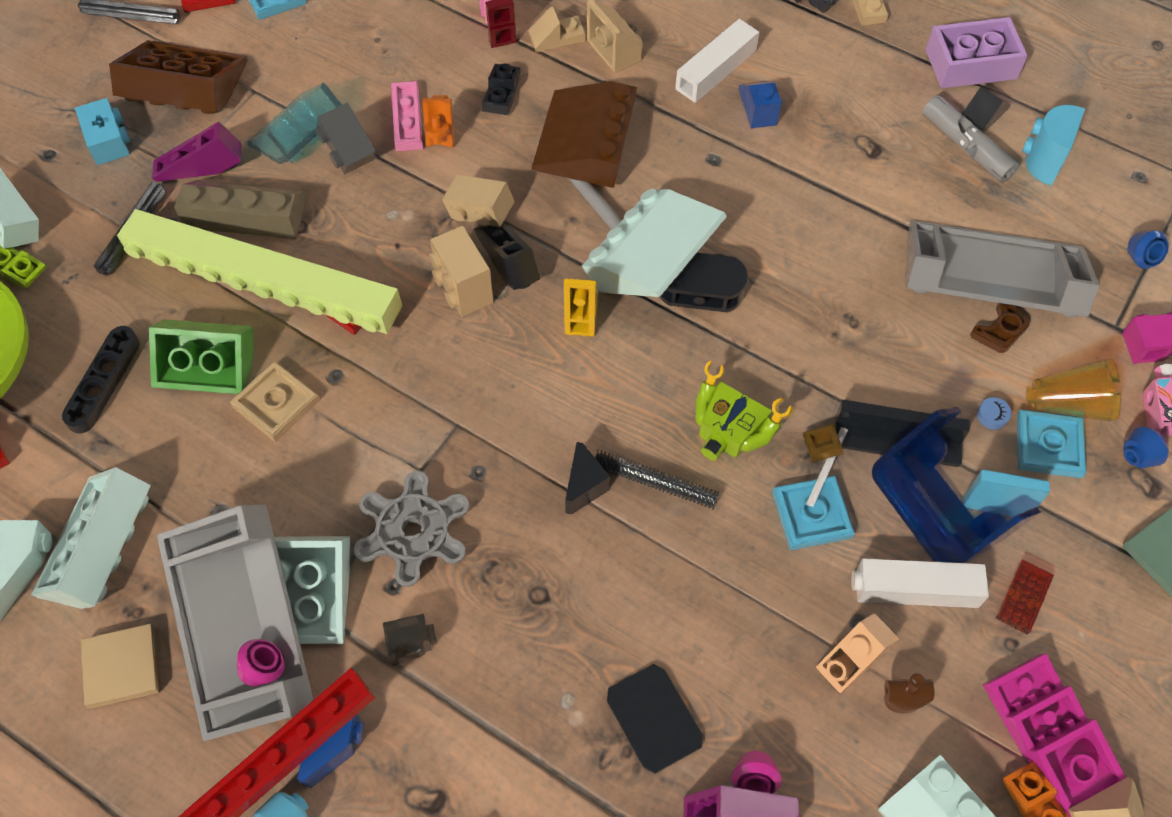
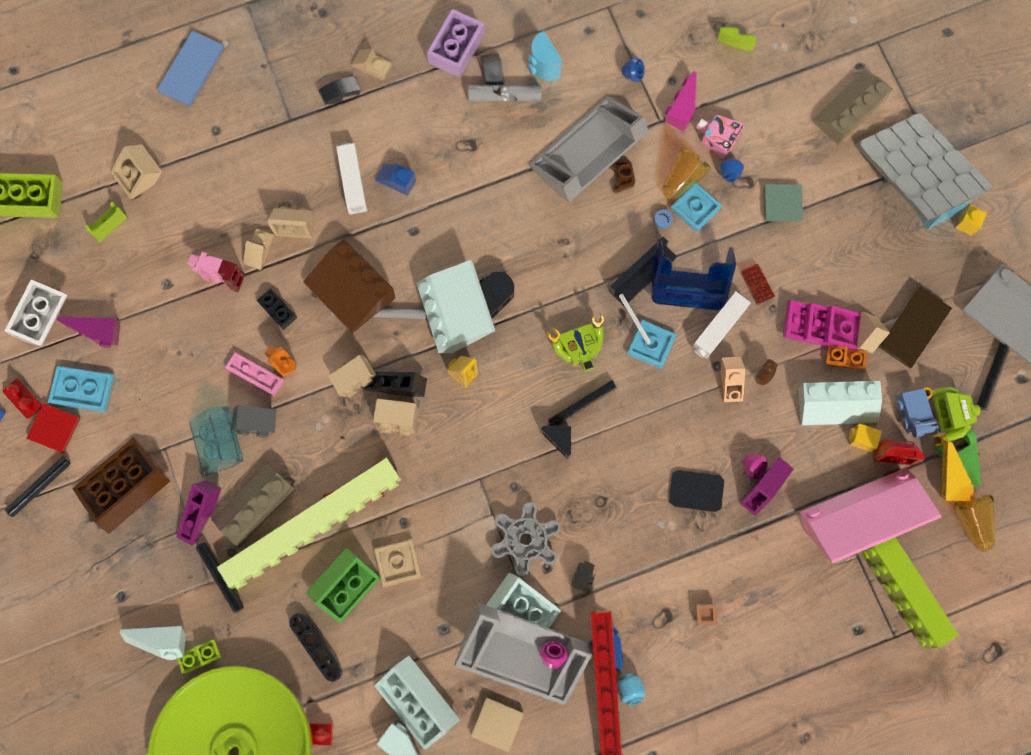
camera: 55 degrees left, 15 degrees up
(102, 131) = (121, 554): medium azure brick -> none
(822, 443) = (621, 311): pearl gold tile -> none
(1005, 493) = (710, 253): medium azure tile -> none

